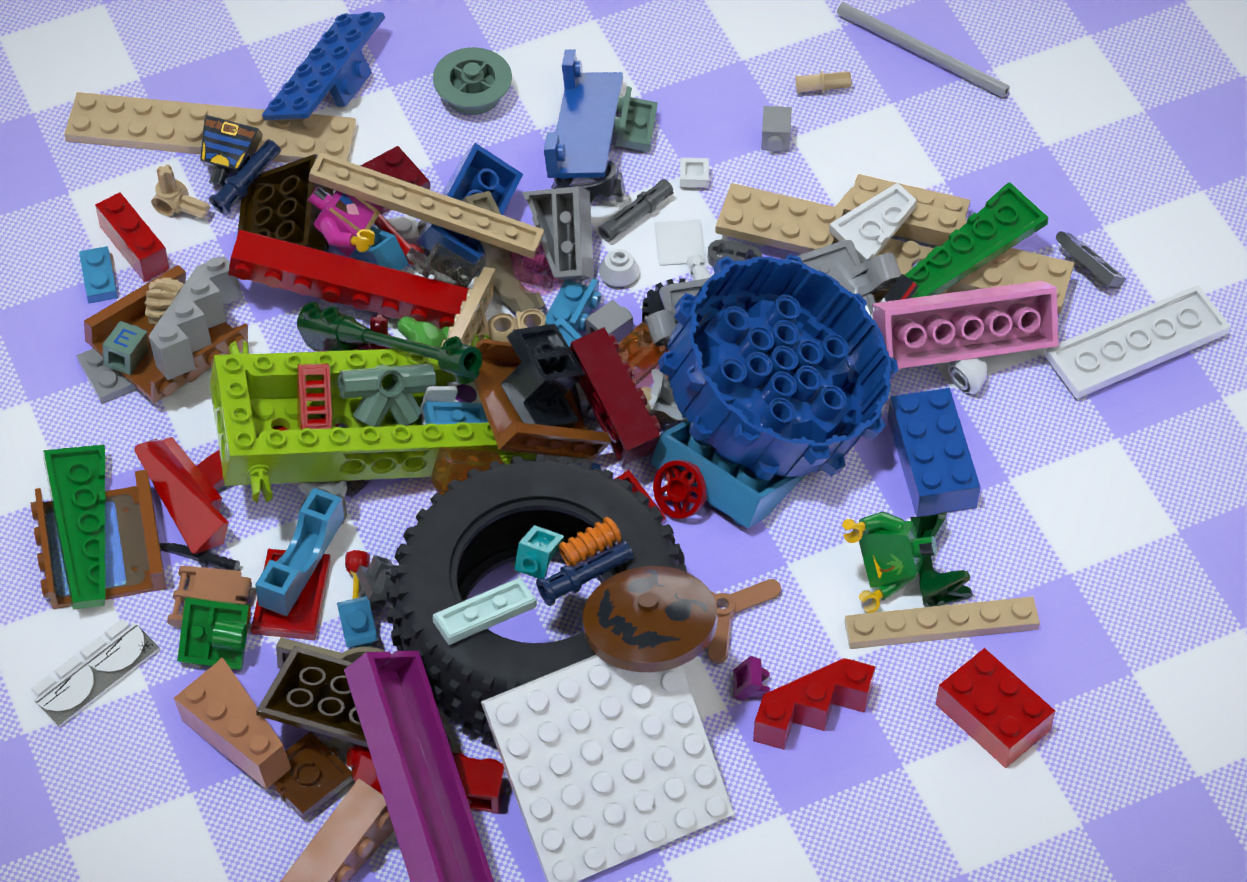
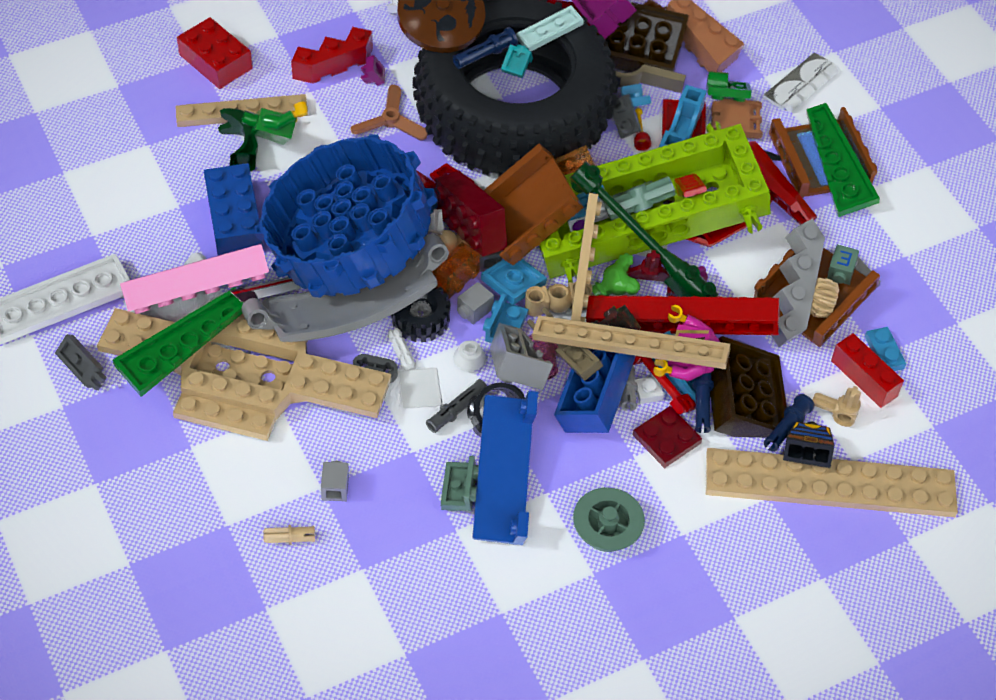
camera: 175 degrees right, 0 degrees up
(331, 66) = (741, 530): blue bracket -> none
(543, 376) = (524, 198): black bracket -> none
(591, 542) = (482, 62): orange piece -> none
(694, 172) = (408, 441): white plate -> none
(874, 221) = (260, 365): white wing -> none
(923, 49) = (193, 577): light grey piece -> none

